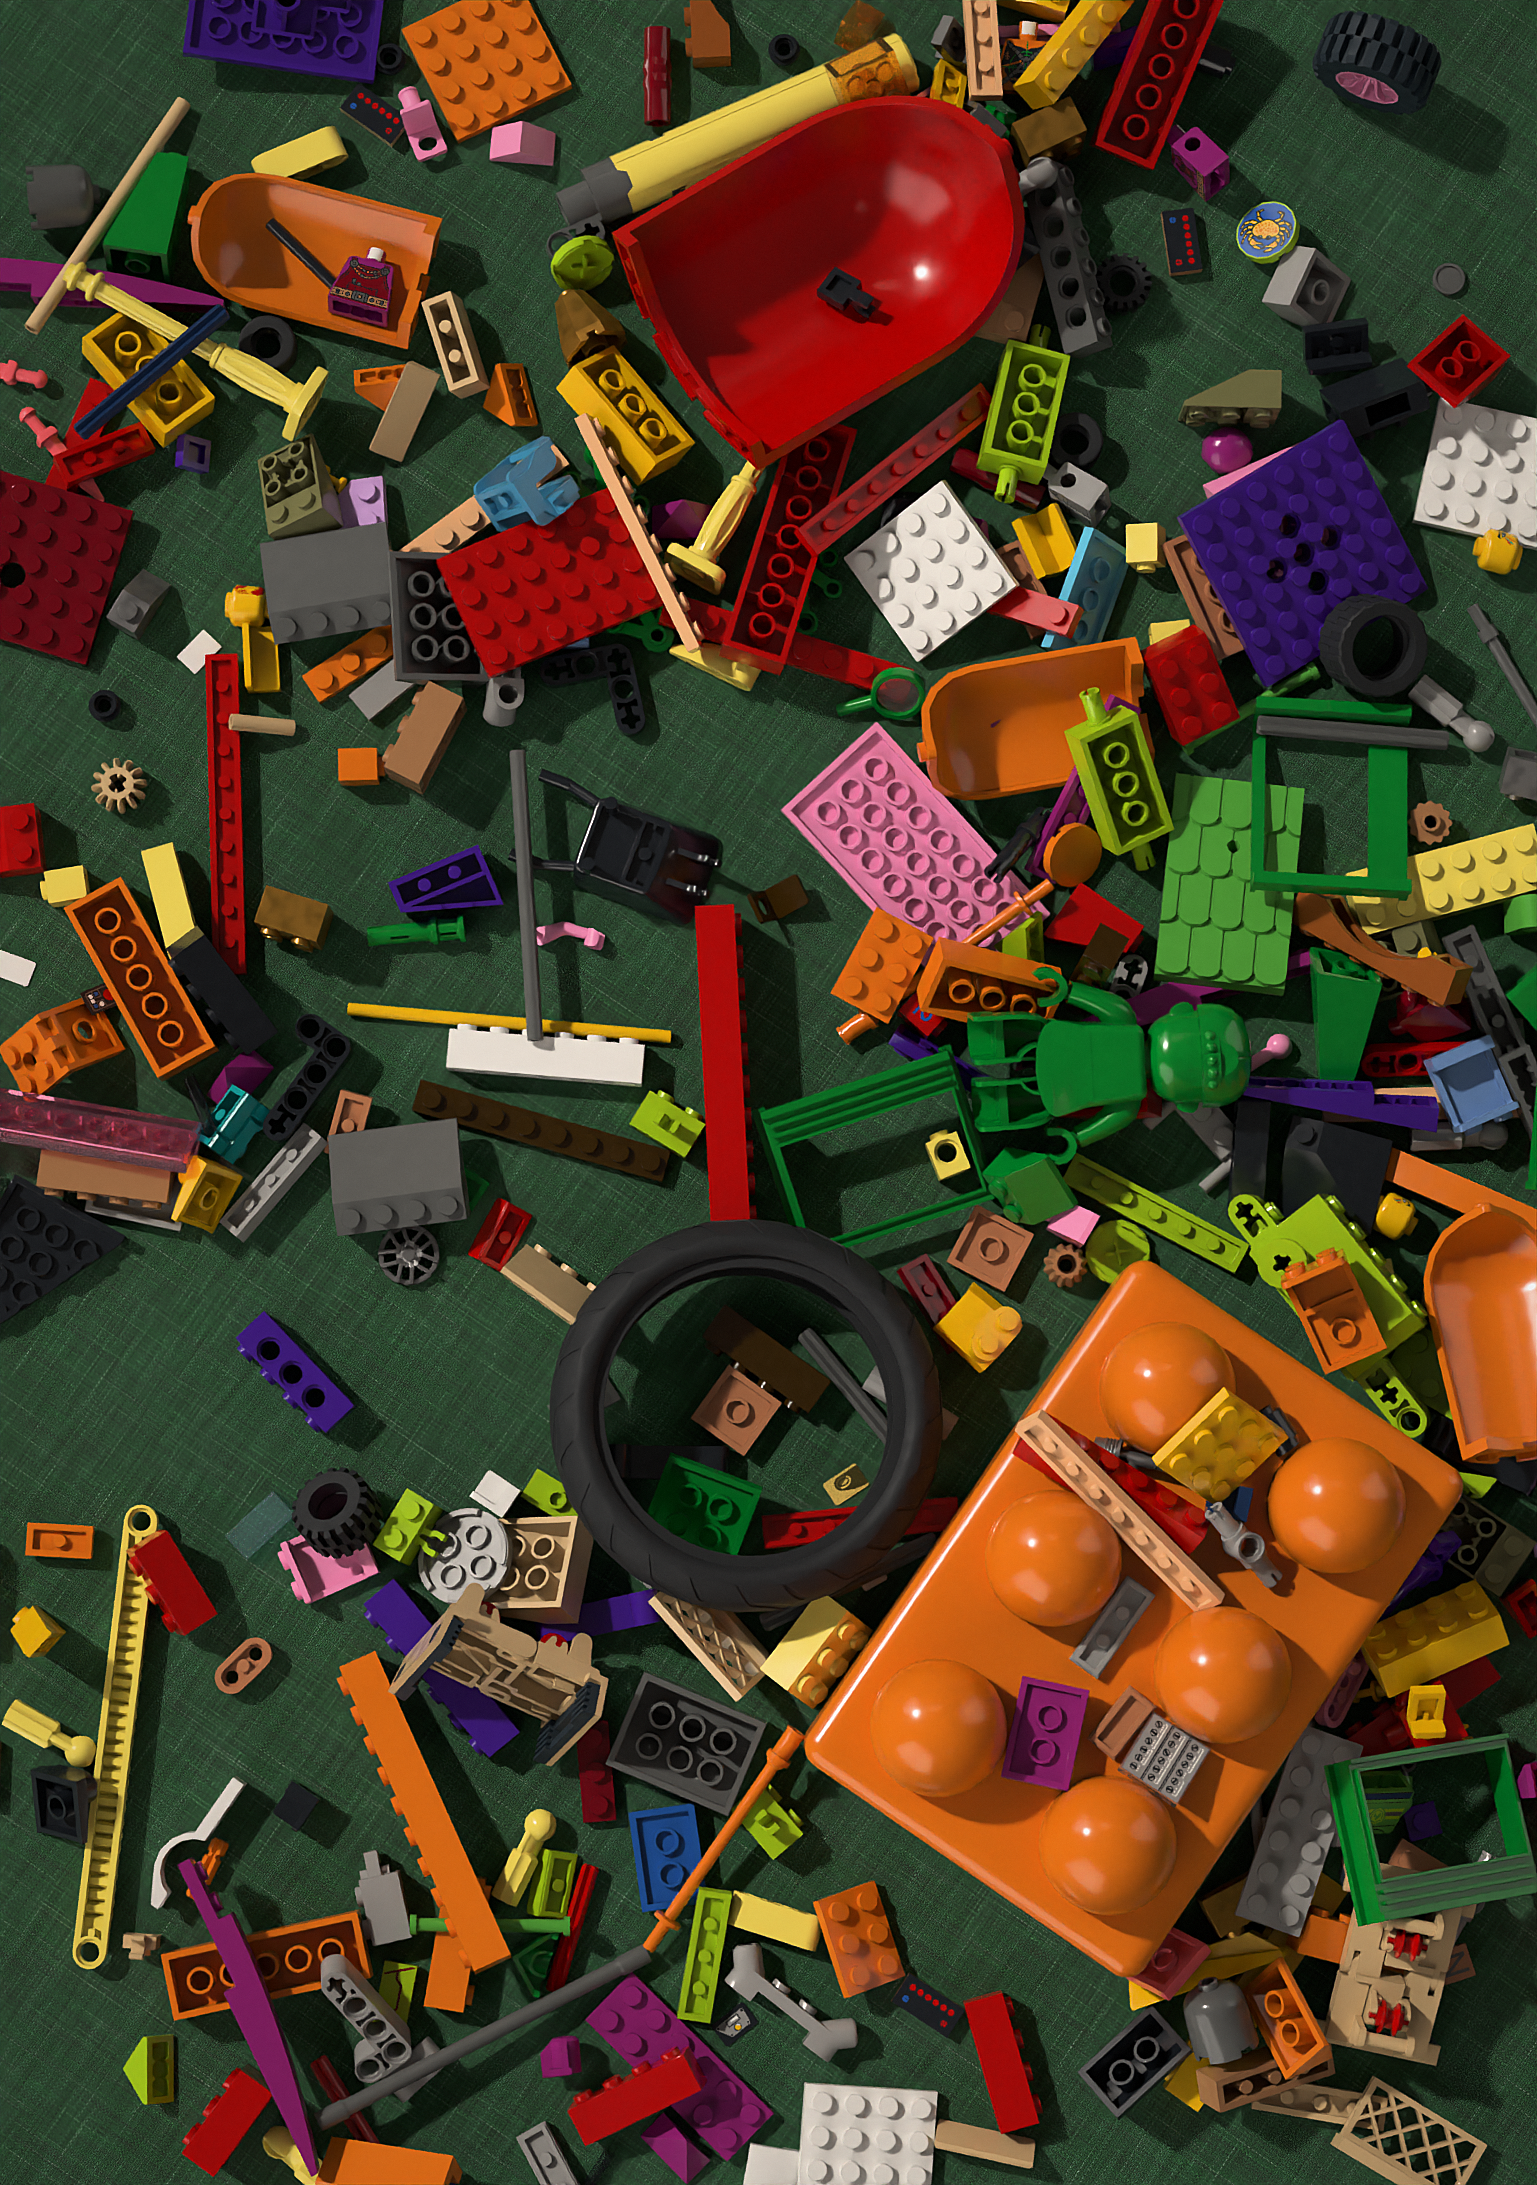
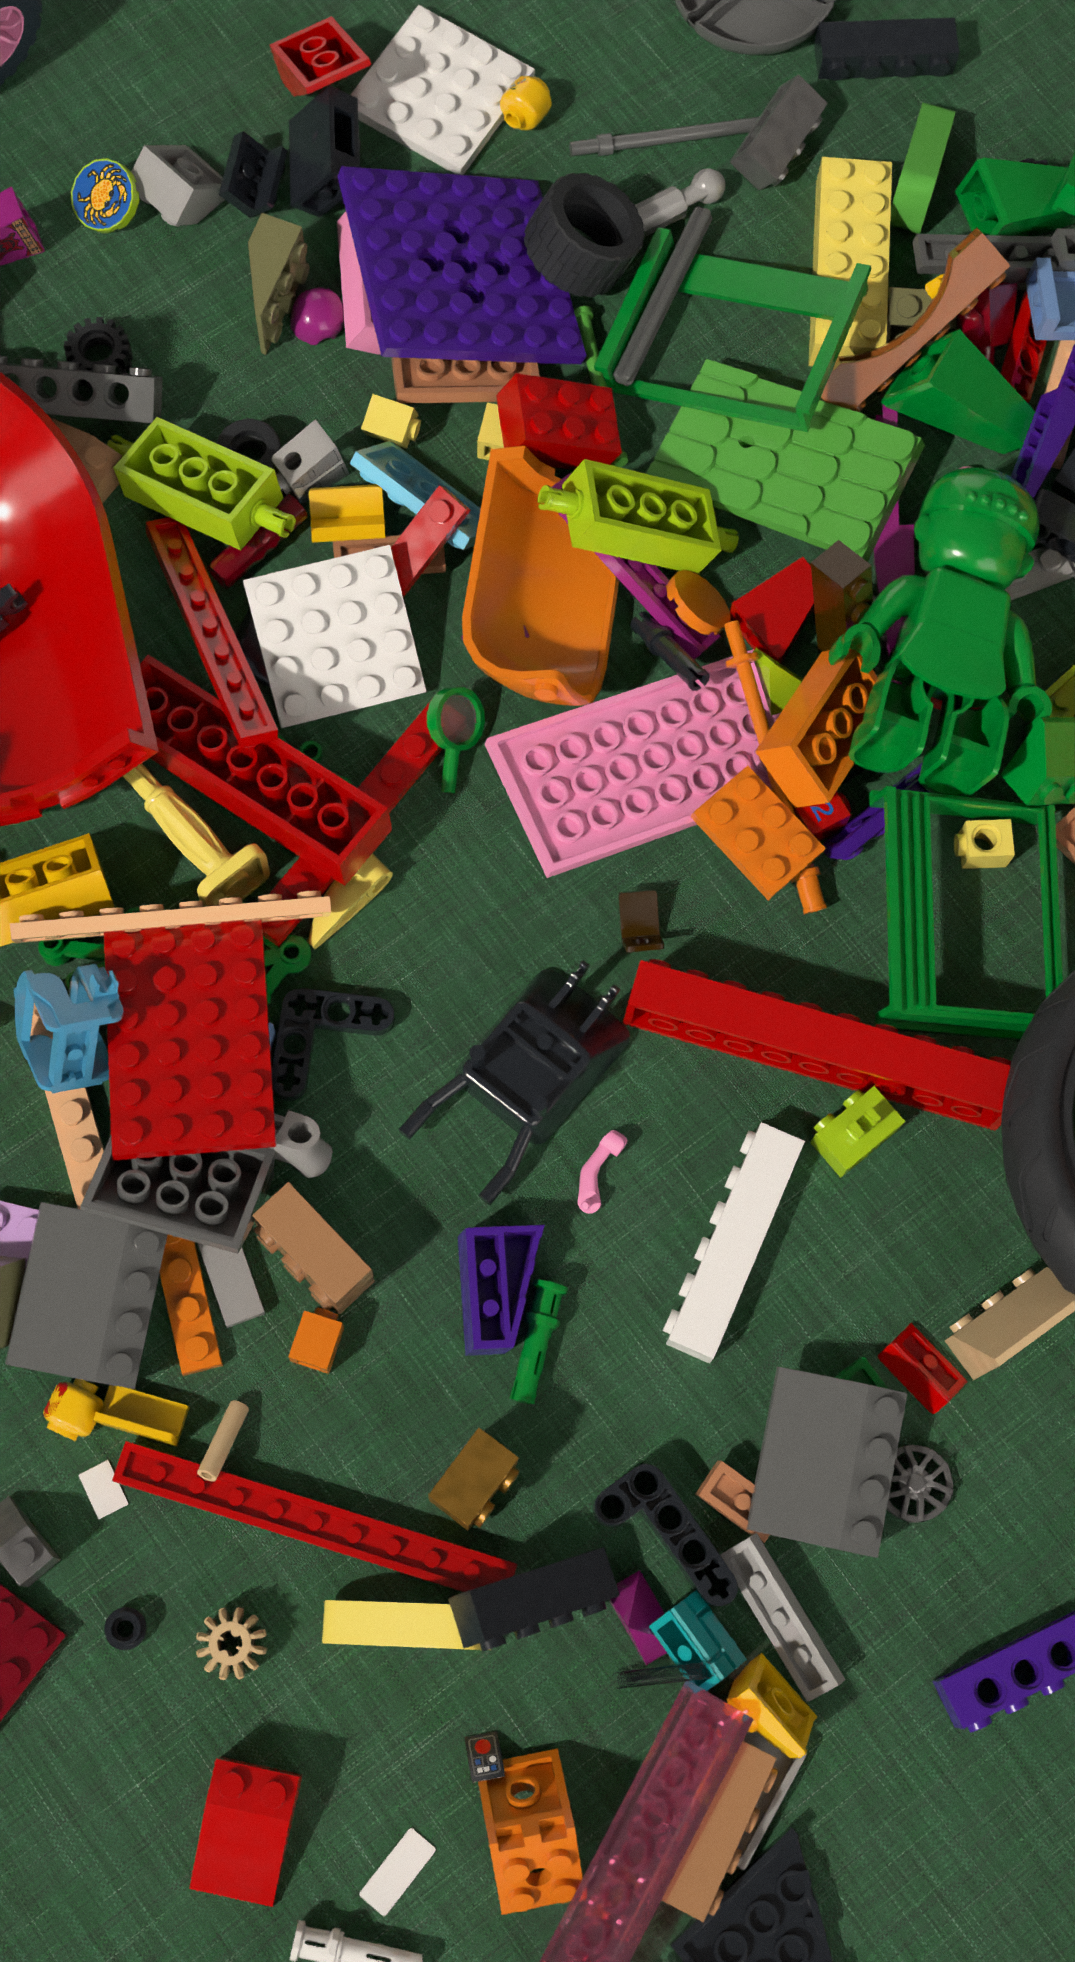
camera: 75 degrees left, 10 degrees down
(65, 885) = (331, 1755): light yellow brick -> none
(141, 979) = (481, 1697): orange brick -> none
(512, 1023) = (676, 1277): yellow piece -> none
(526, 895) = (543, 1195): dark grey piece -> none
(541, 1131) = (814, 1280): dark brown plate -> none
(679, 520) = (170, 879): magenta slope -> none
(1181, 241) = (77, 284): black tile -> none
(1437, 814) = (784, 253): medium nougat piece -> none
(1448, 279) = (224, 60): dark grey piece -> none

